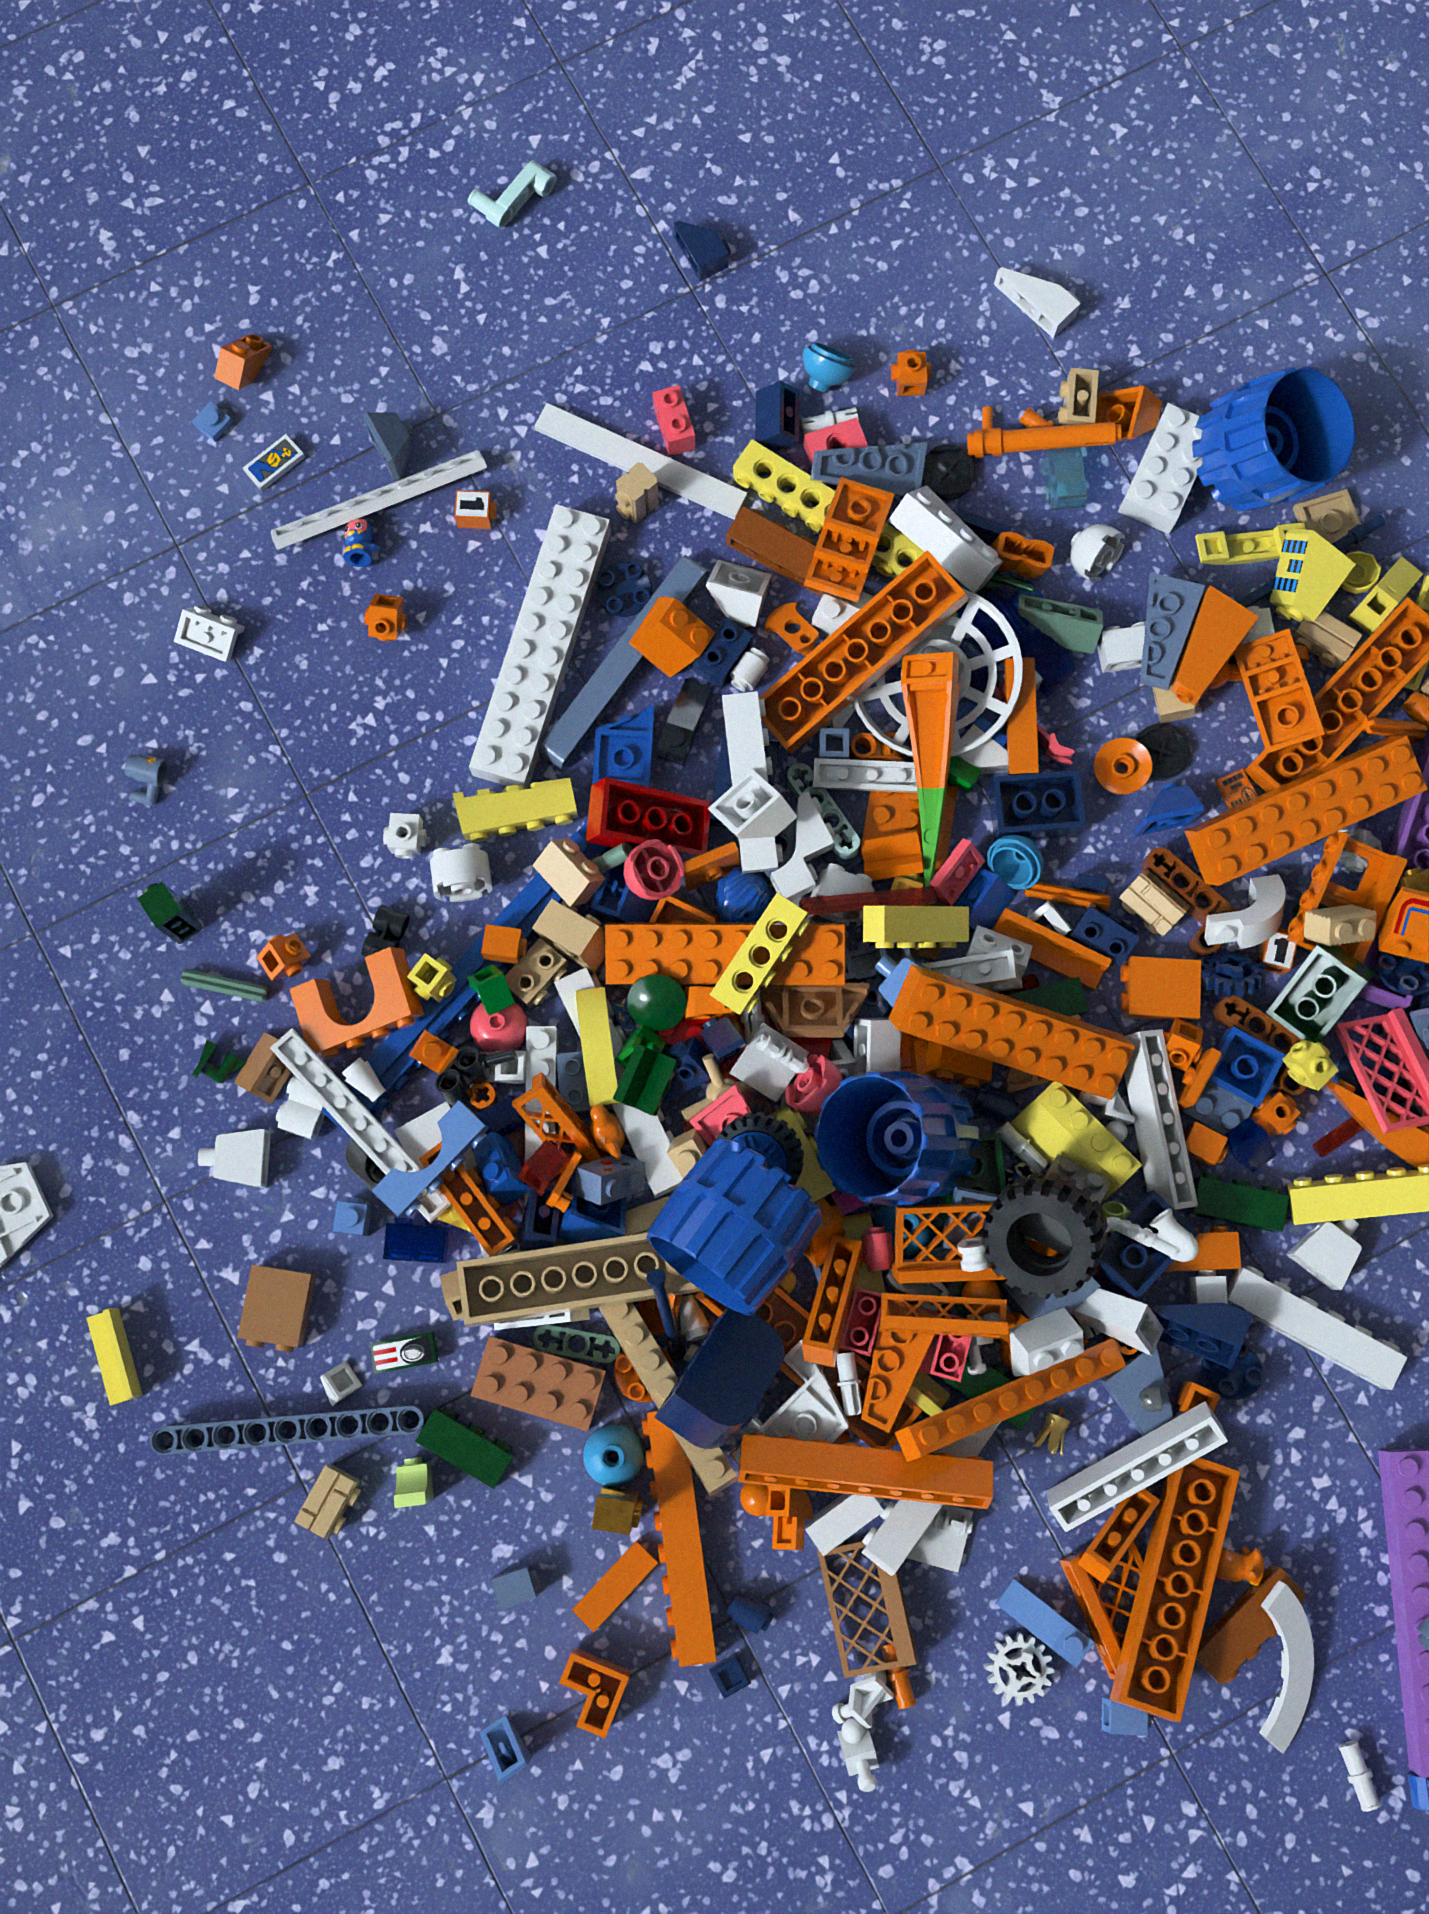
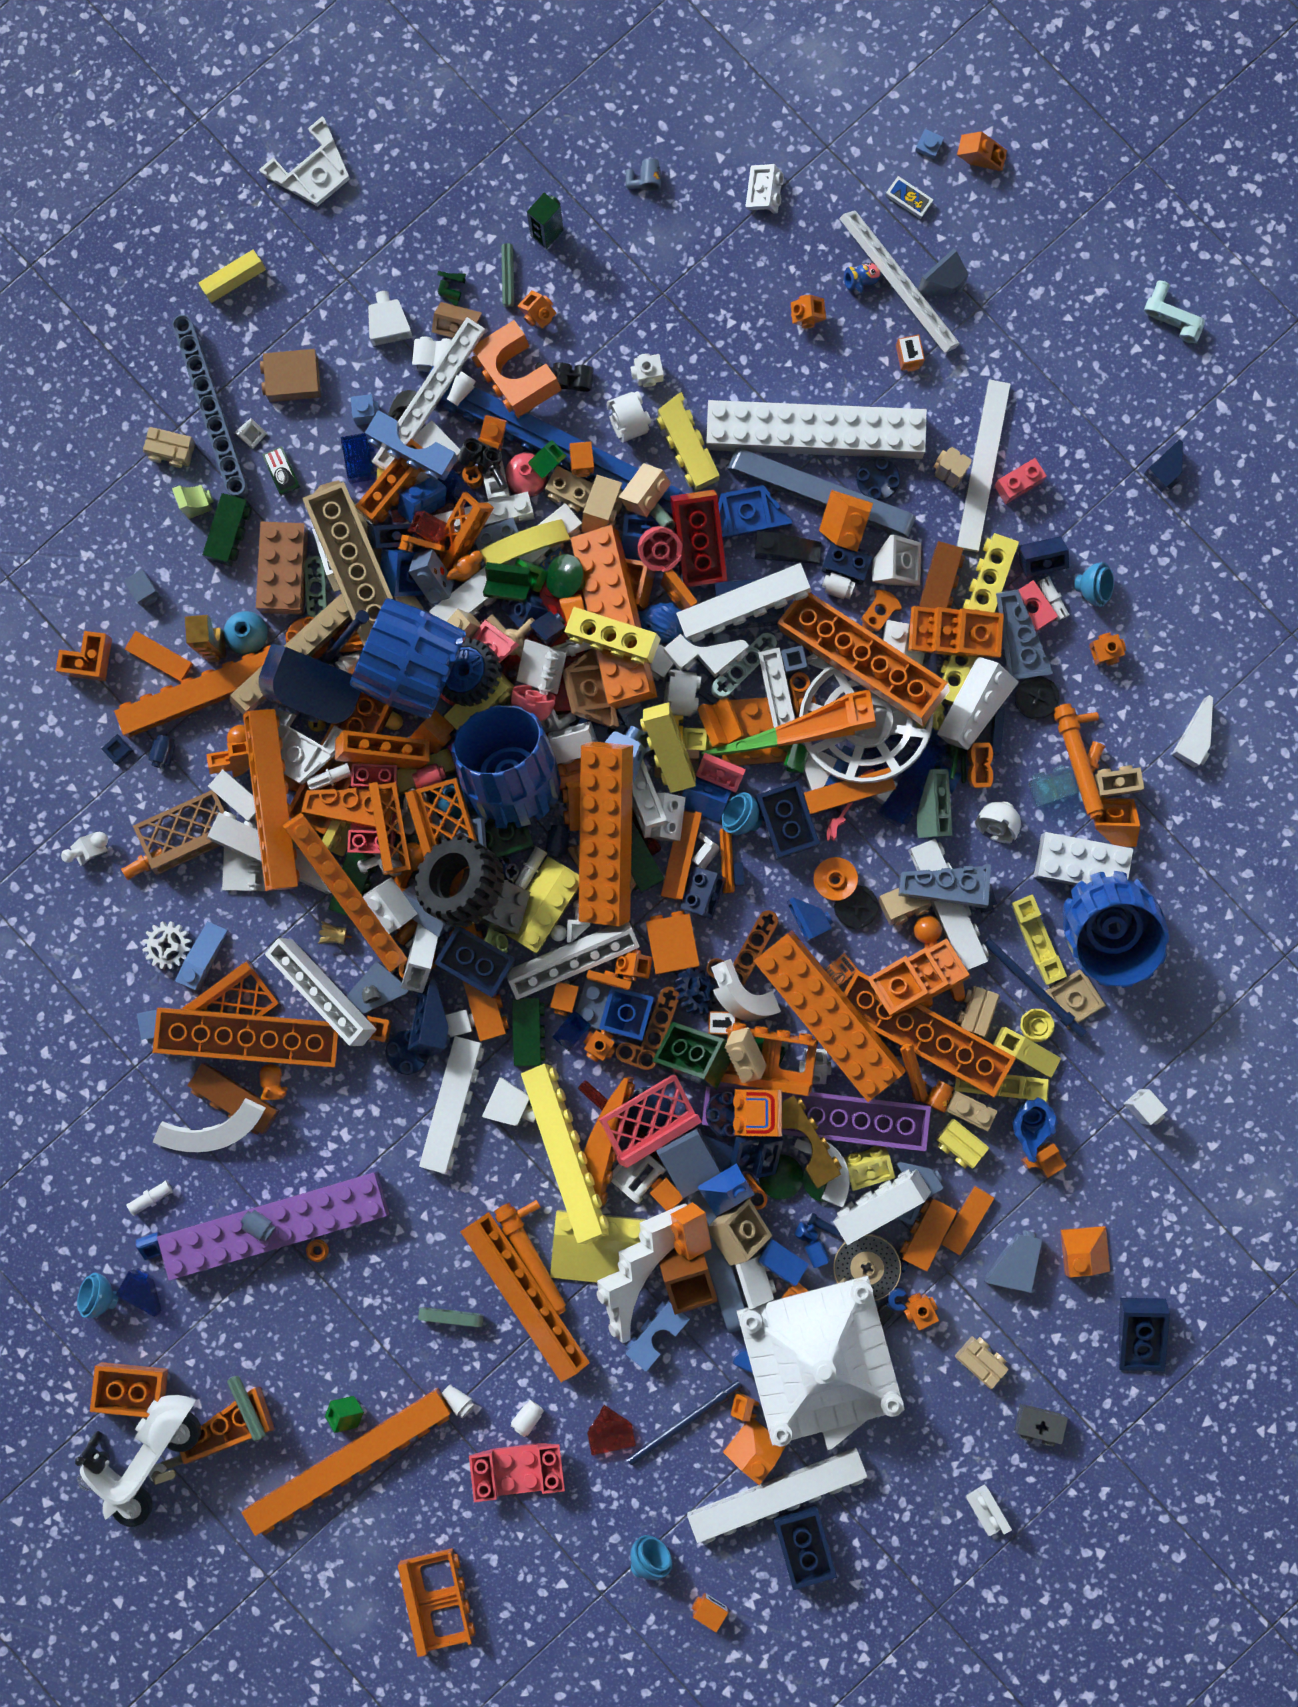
camera: 80 degrees right, 5 degrees up
(432, 978) = (543, 415): light yellow brick -> none
(505, 1748) = (35, 609): medium blue slope -> none
(753, 808) = (719, 605): white slope -> none
(856, 901) = (682, 720): clear red axle -> none
(863, 1698) = (122, 842): white piece -> none
(973, 1254) = (435, 838): white wheel -> none
(1118, 1534) = (272, 991): orange brick -> none
(1153, 902) = (736, 923): tan brick -> none
(1171, 1236) = (481, 976): white piece -> none
(1214, 639) = (942, 919): orange slope -> none
(1307, 575) = (1018, 983): light yellow slope -> none
(1310, 1064) = (638, 1056): light yellow brick -> none

